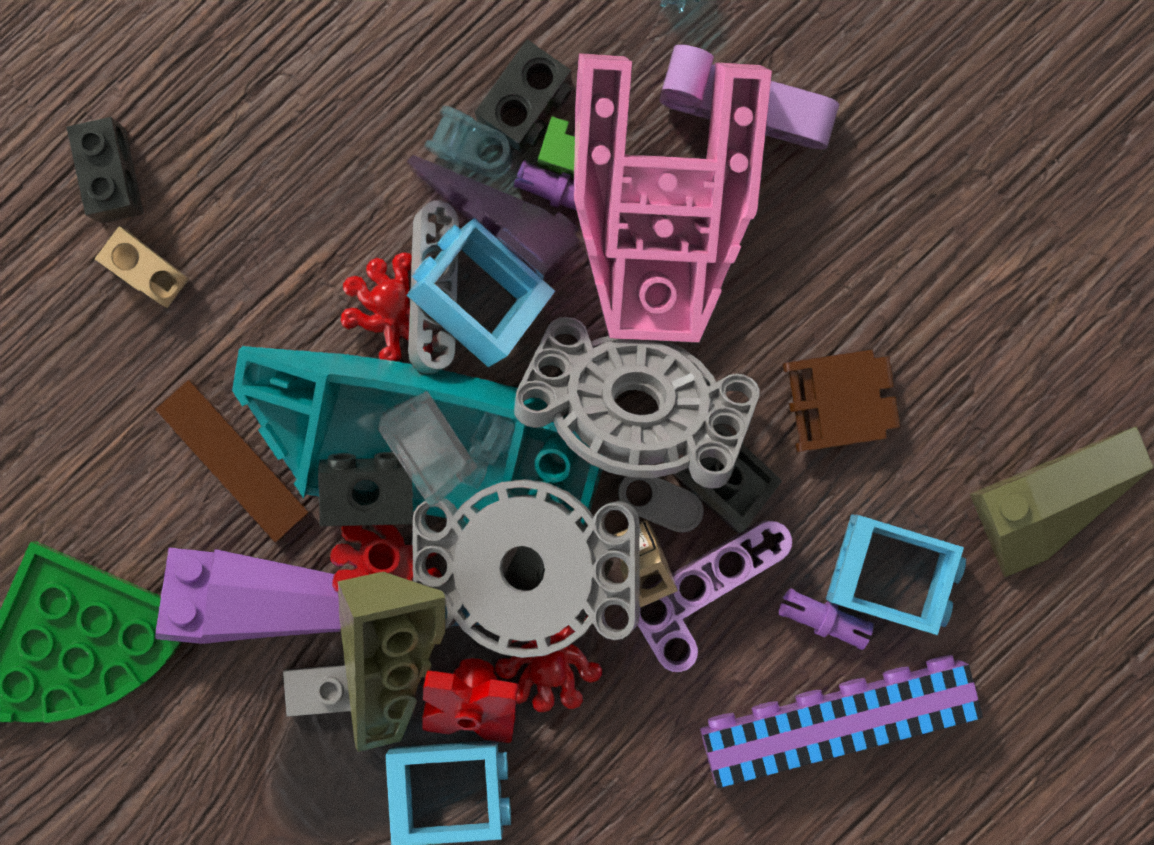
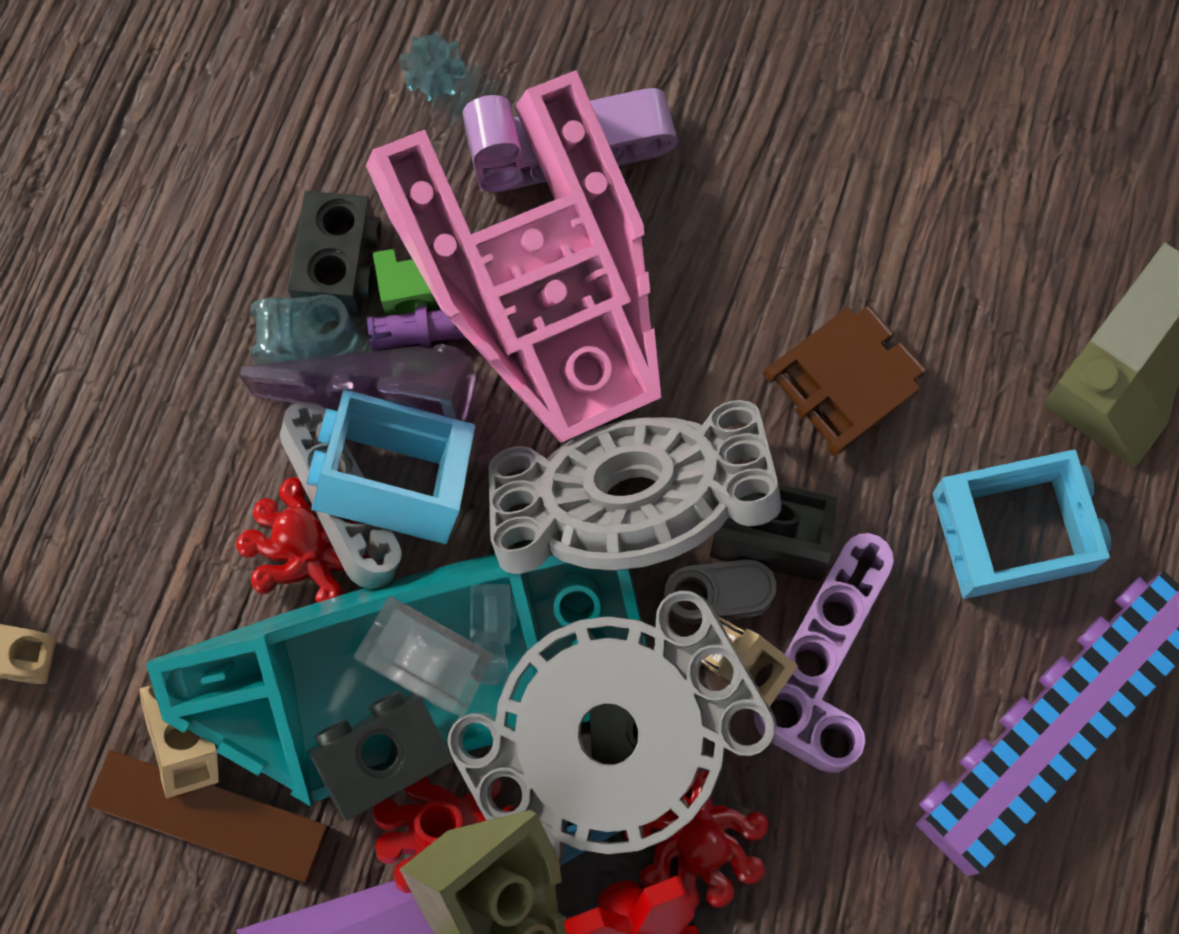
camera: 25 degrees left, 15 degrees down
(232, 419) = (183, 758): none -> tan leg
(826, 619) = (977, 616): medium lavender pin -> none

